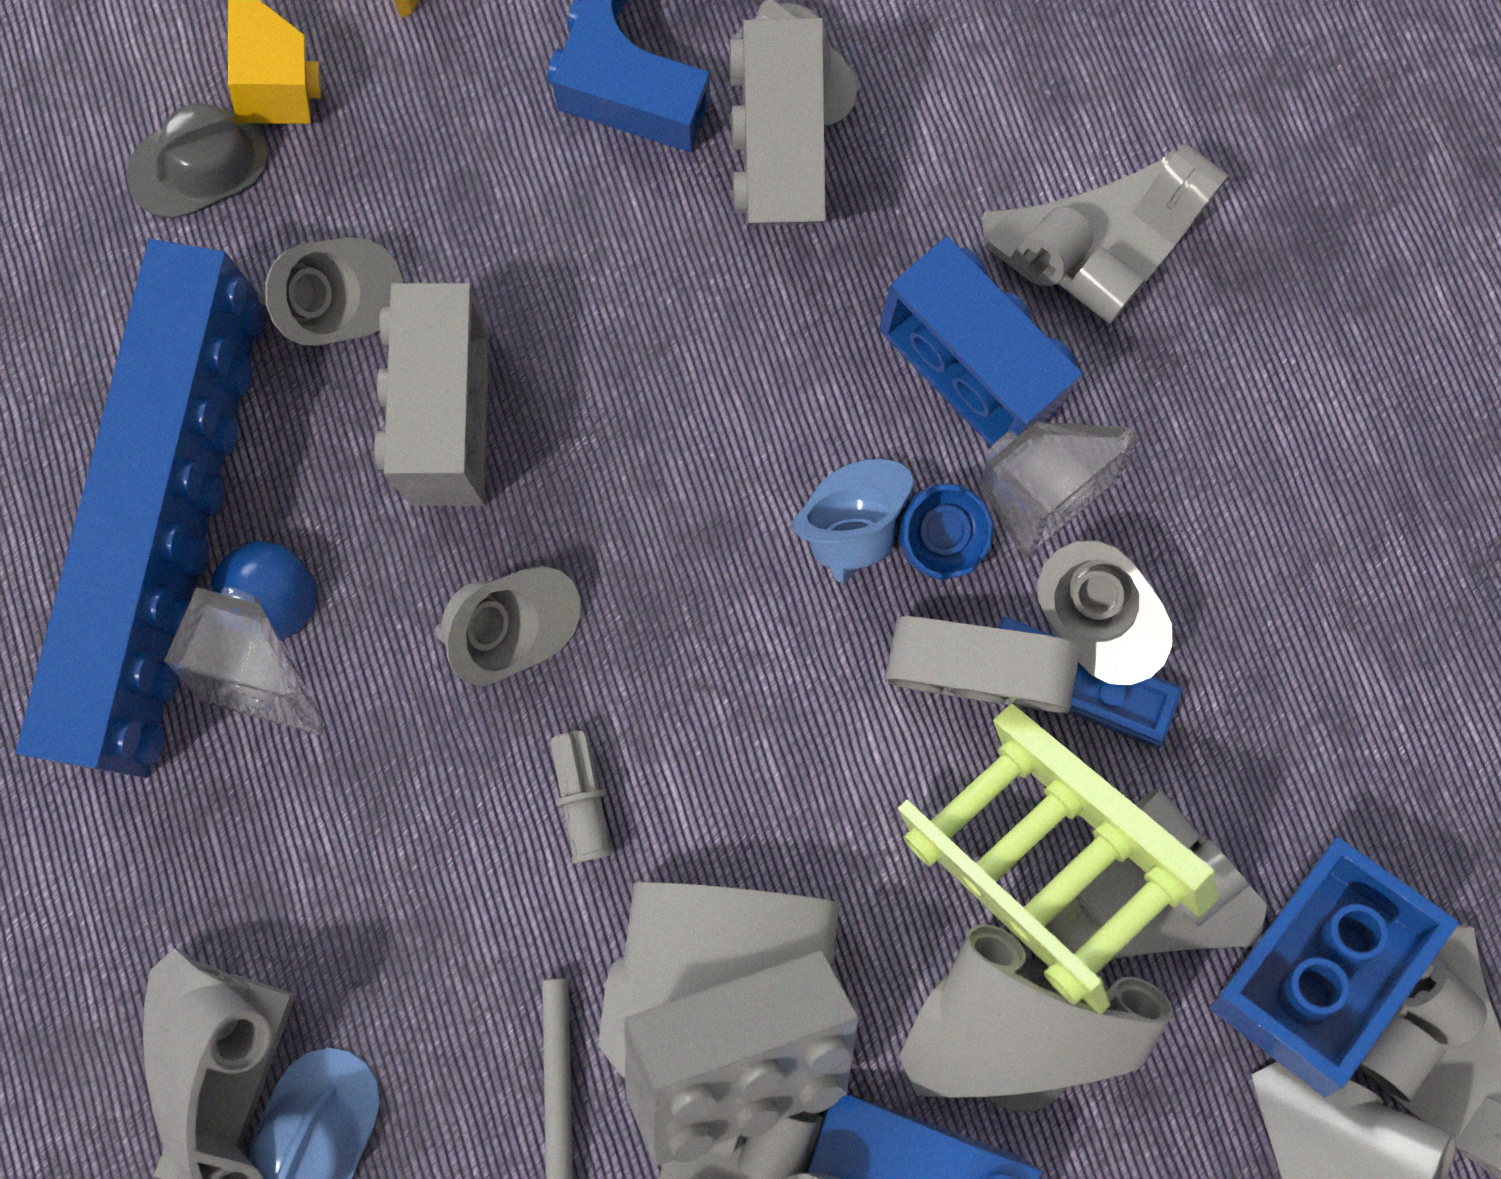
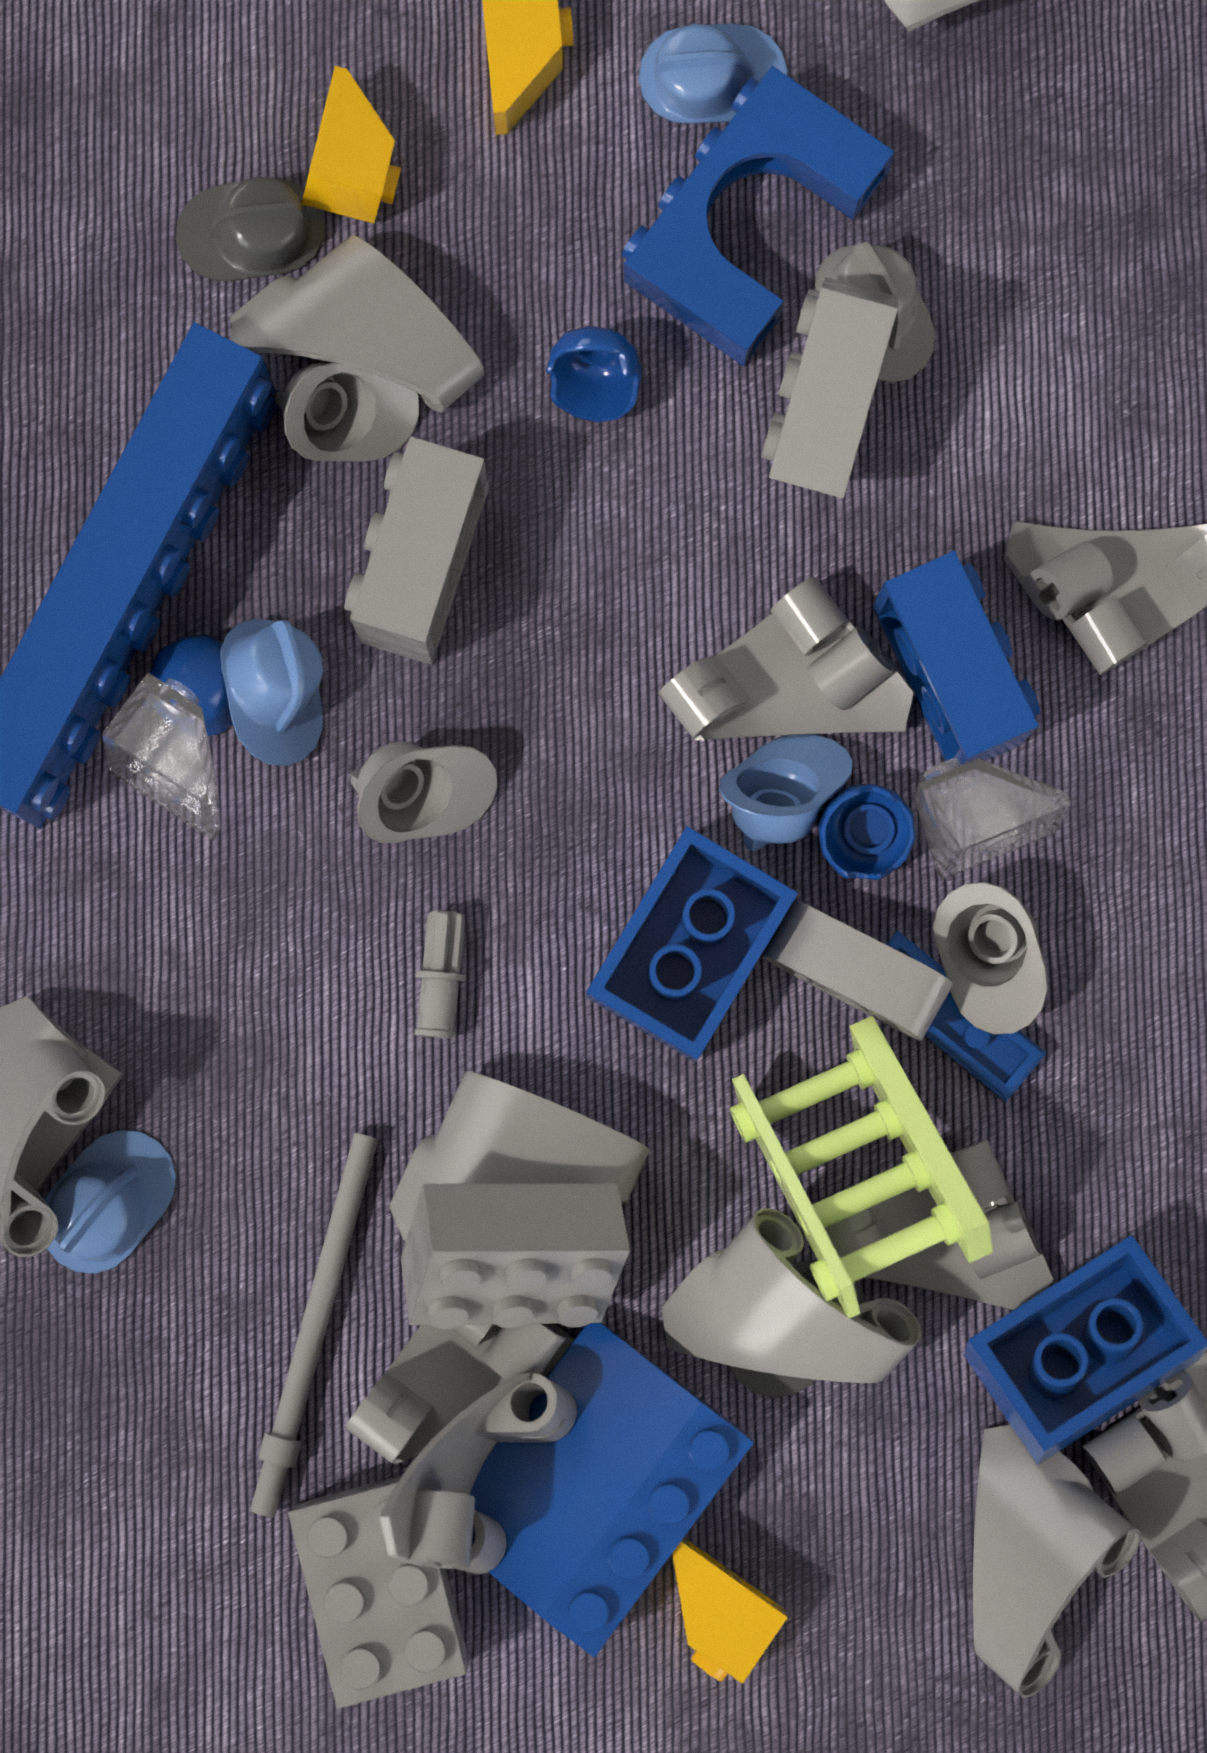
camera: 20 degrees right, 5 degrees up
(326, 196) = (365, 317): none -> light grey panel
(336, 572) = (273, 689): none -> medium blue piece
(555, 191) = (594, 374): none -> blue hair
(816, 690) = (691, 944): none -> blue brick
(828, 410) = (793, 677): none -> light grey panel

